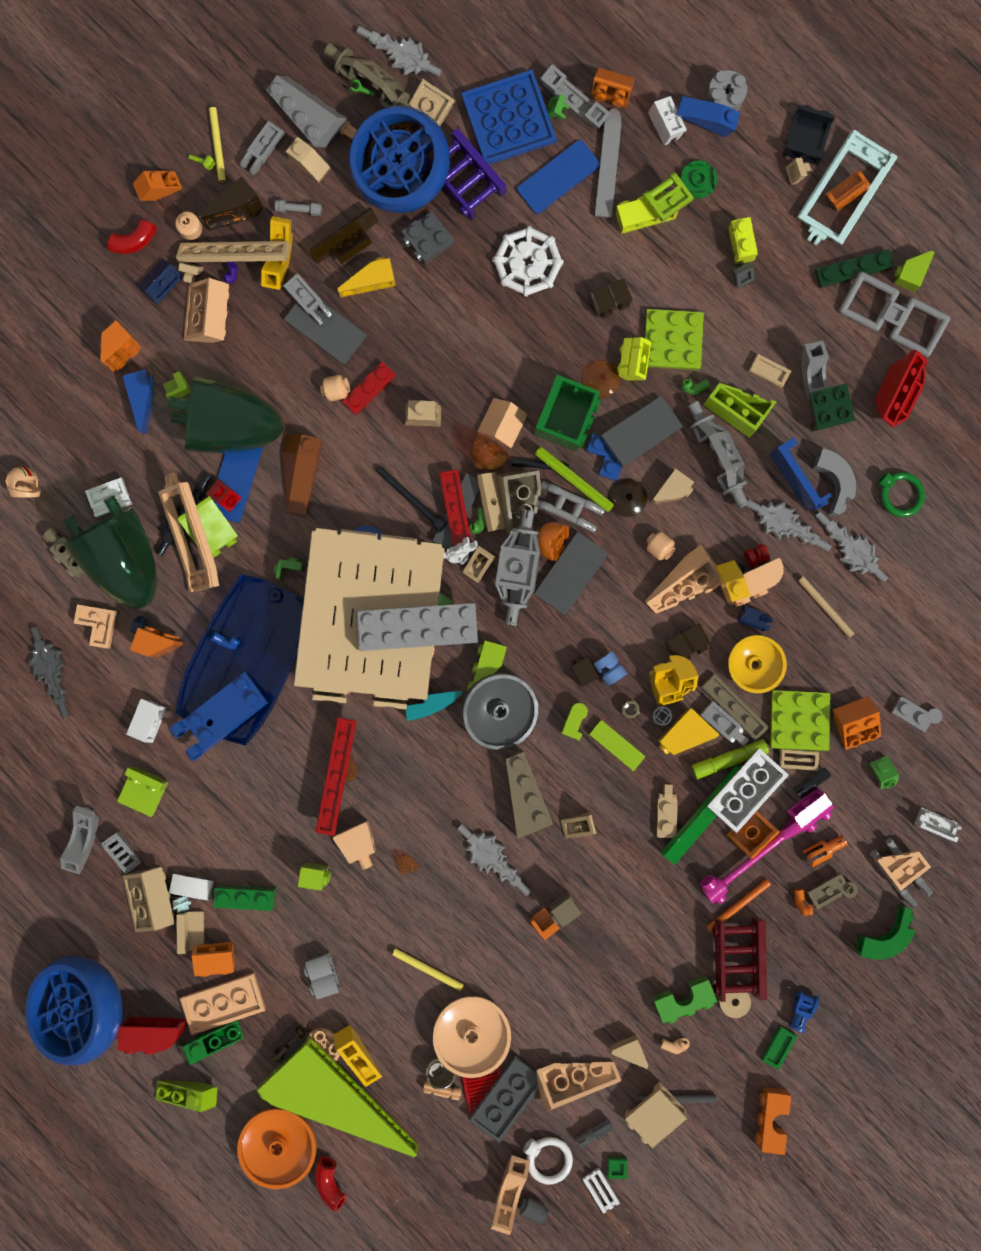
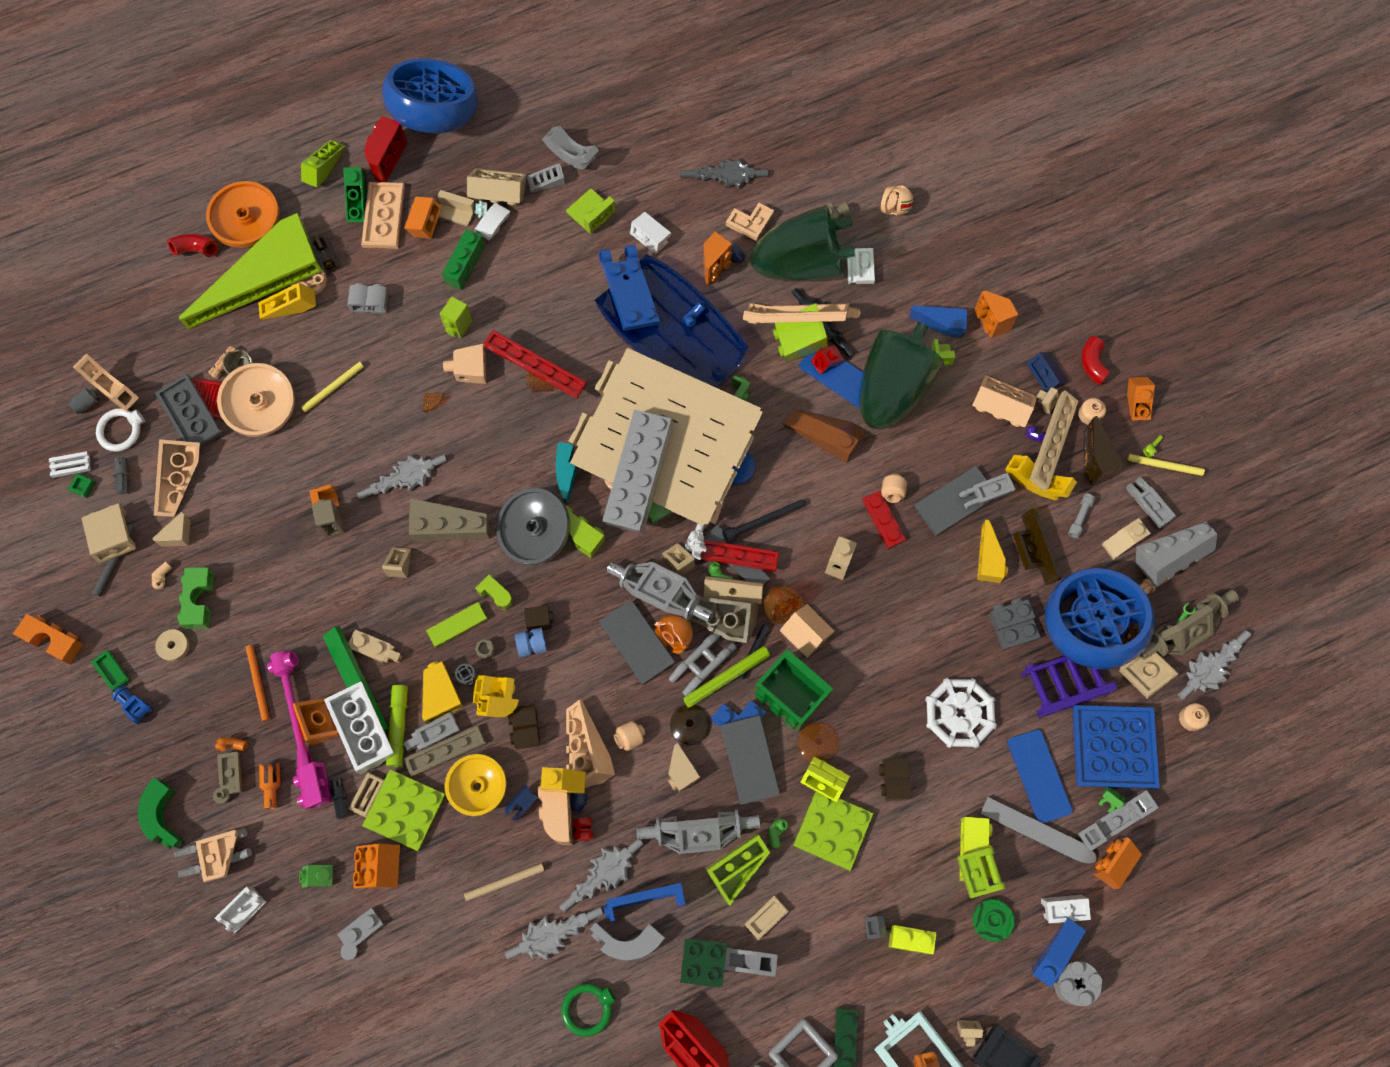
camera: 110 degrees right, 15 degrees down
(457, 55) = (1194, 717): none -> light nougat head
(757, 968) = (192, 674): dark red fence -> none

